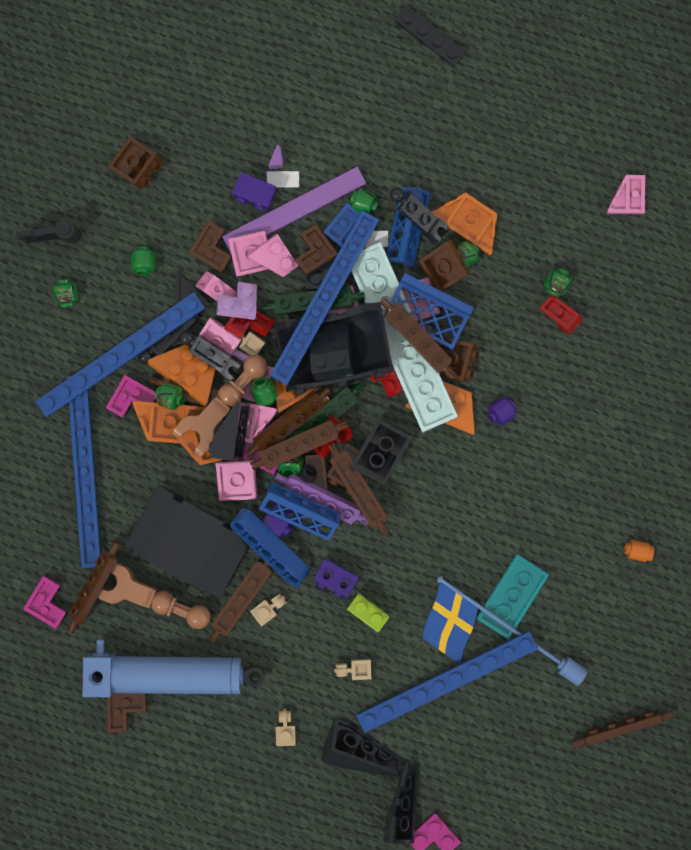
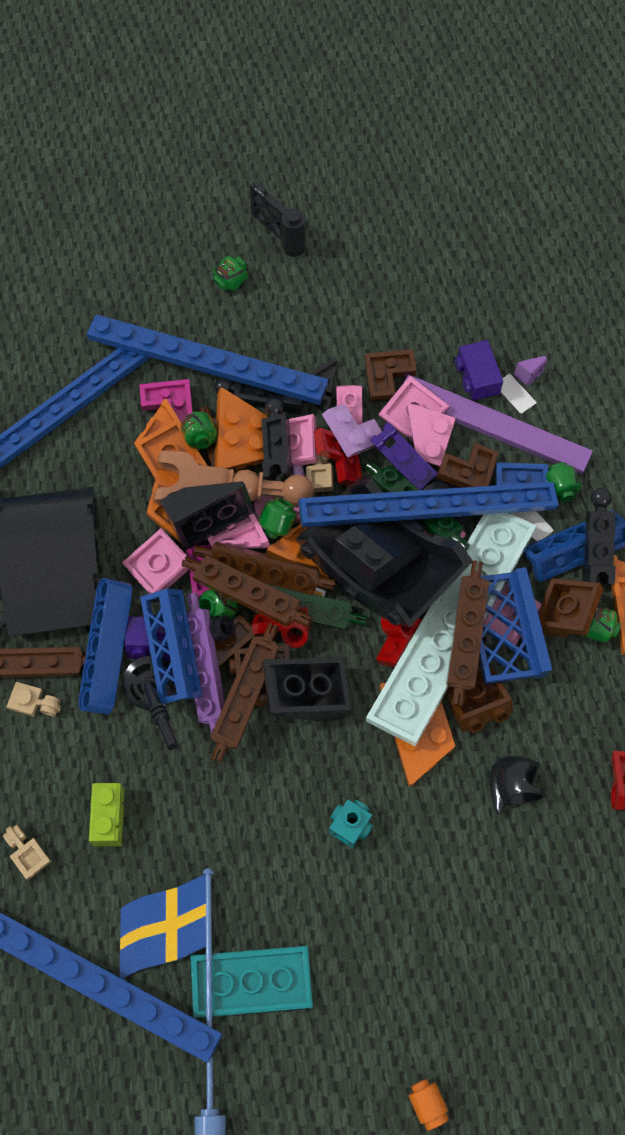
camera: 50 degrees right, 20 degrees down
(136, 163) = (412, 251): reddish brown plate -> none
(143, 261) = (320, 319): green head -> none
(278, 284) = (404, 457): none -> dark purple plate
(317, 542) = (150, 698): none -> black dish
(335, 578) = (122, 749): dark purple brick -> none
(477, 488) = (348, 832): none -> teal brick
(502, 411) = (463, 796): dark purple head -> none
(514, 377) = (513, 781): none -> black piece

